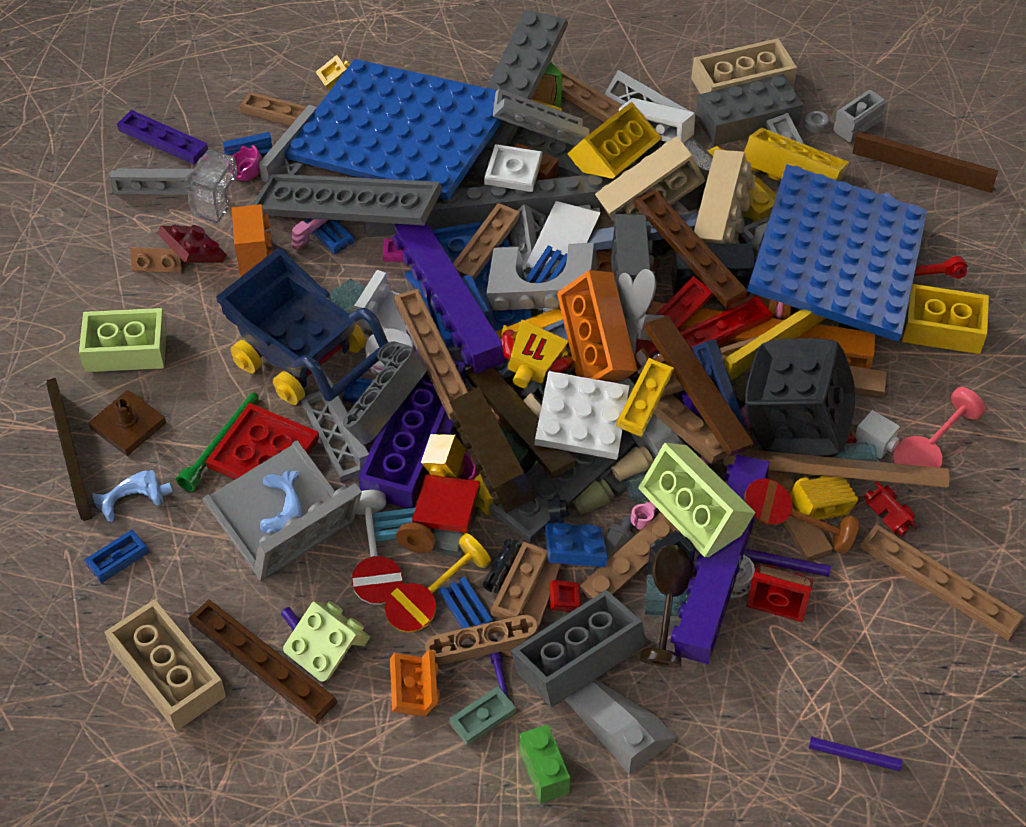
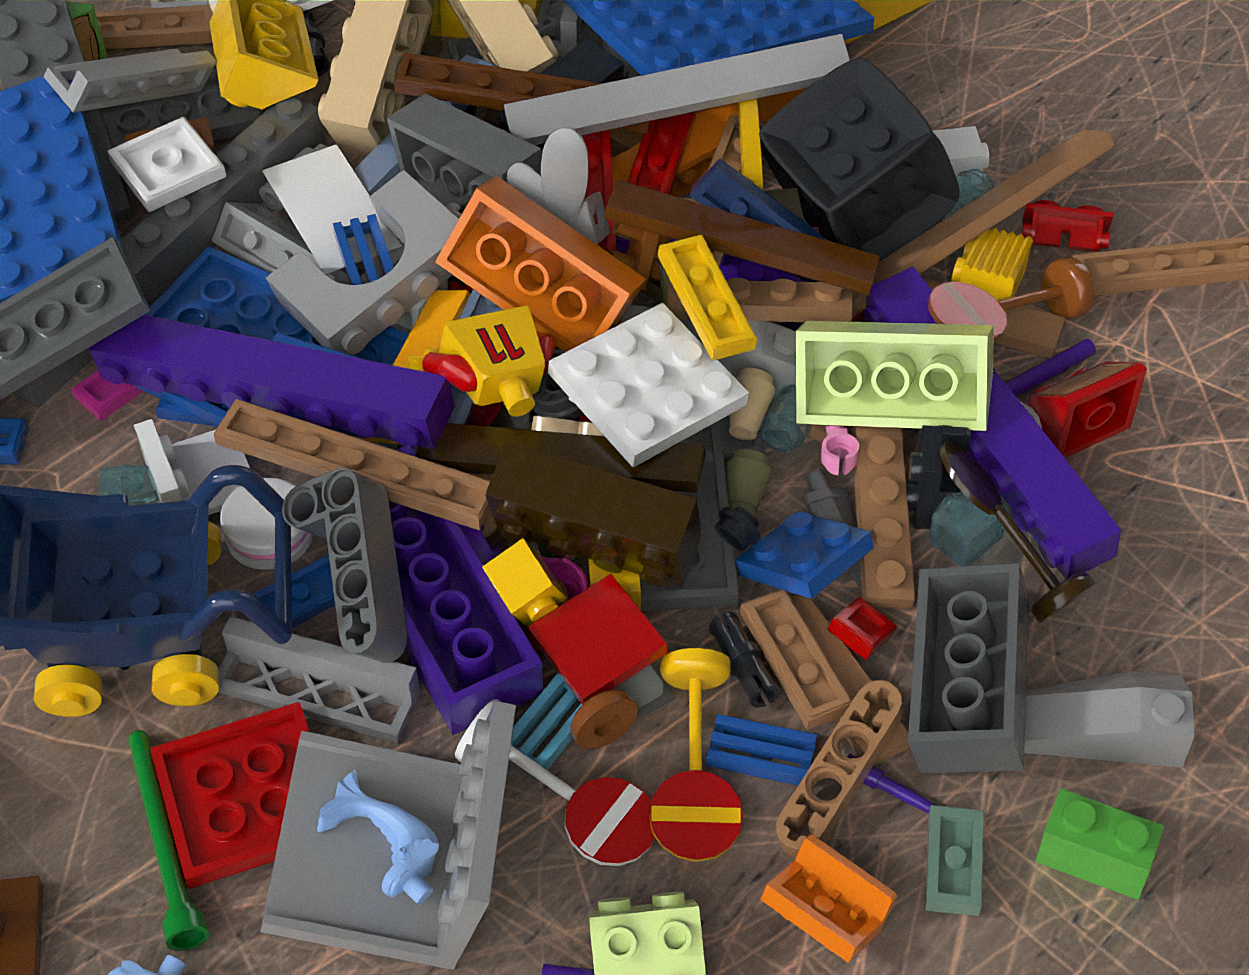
camera: 45 degrees left, 0 degrees up
(489, 236) = (232, 277): medium nougat plate -> none
(751, 297) = (677, 90): none -> light grey tile
(924, 451) = (1011, 143): coral piece -> none

